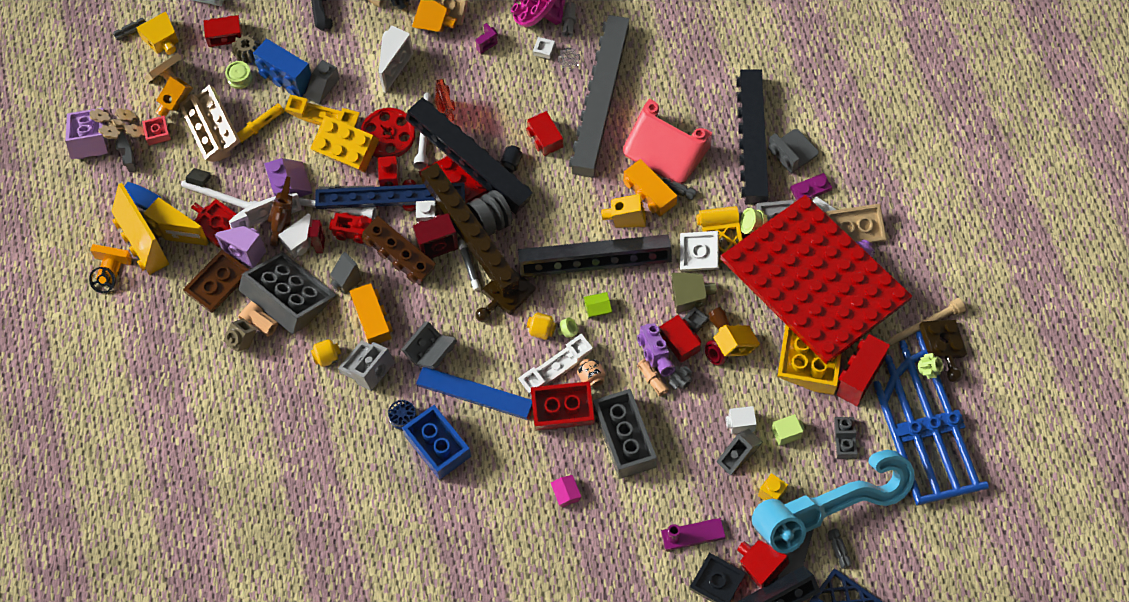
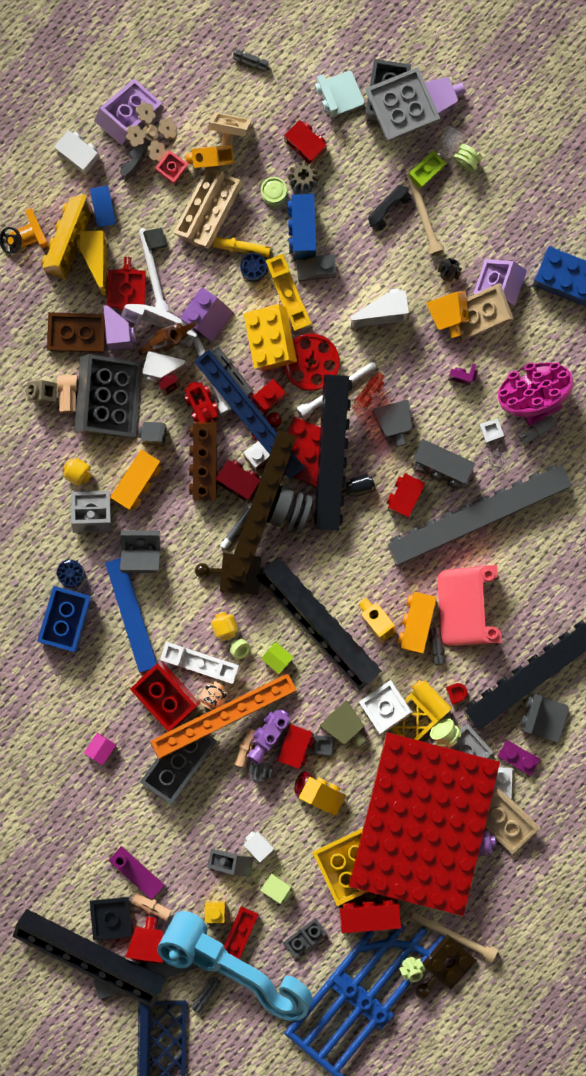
camera: 50 degrees right, 20 degrees up
(82, 187) = (77, 152): none -> white brick
(159, 34) = (263, 91): yellow torso -> none
(282, 125) = (253, 267): none -> dark blue wheel
(481, 105) = (394, 421): none -> dark grey torso
(541, 90) = (442, 464): none -> dark grey brick
(613, 371) = (222, 716): none -> orange plate
(719, 317) = (336, 766): reddish brown cone -> none
(726, 198) = (457, 693): none -> red tile
(743, 534) = (151, 907): none -> light nougat pin
(802, 479) = (240, 931): none -> red plate

